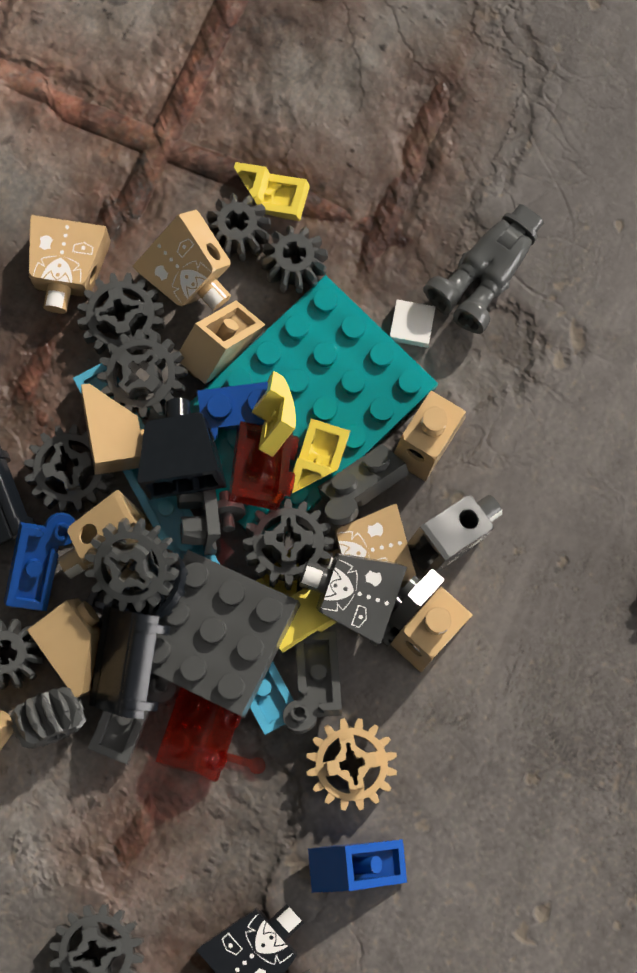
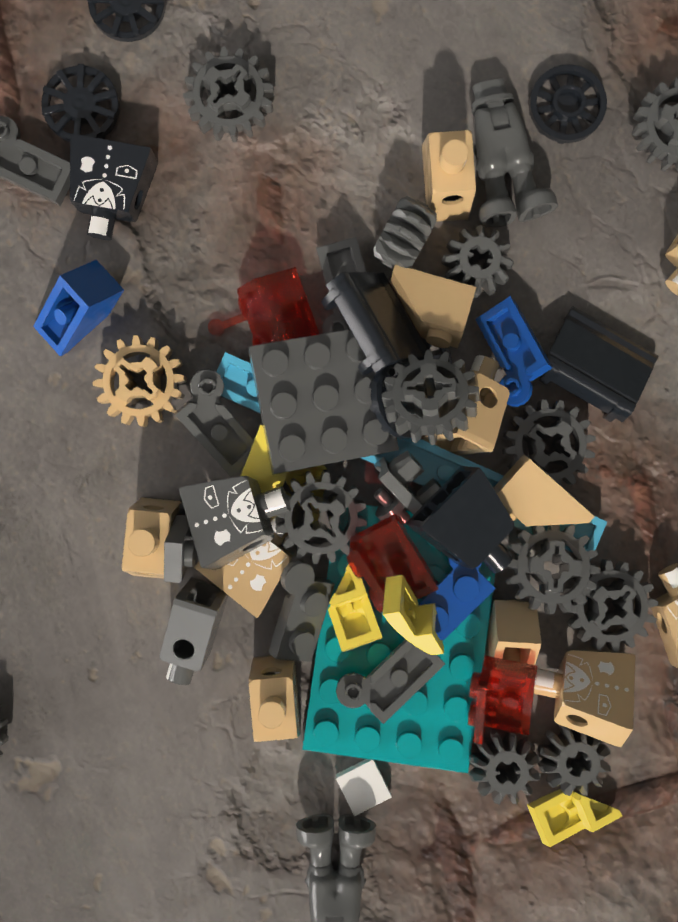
camera: 140 degrees right, 10 degrees up
(254, 307) = (503, 697): none -> clear red bracket
(330, 381) = (390, 682): none -> dark grey hinge

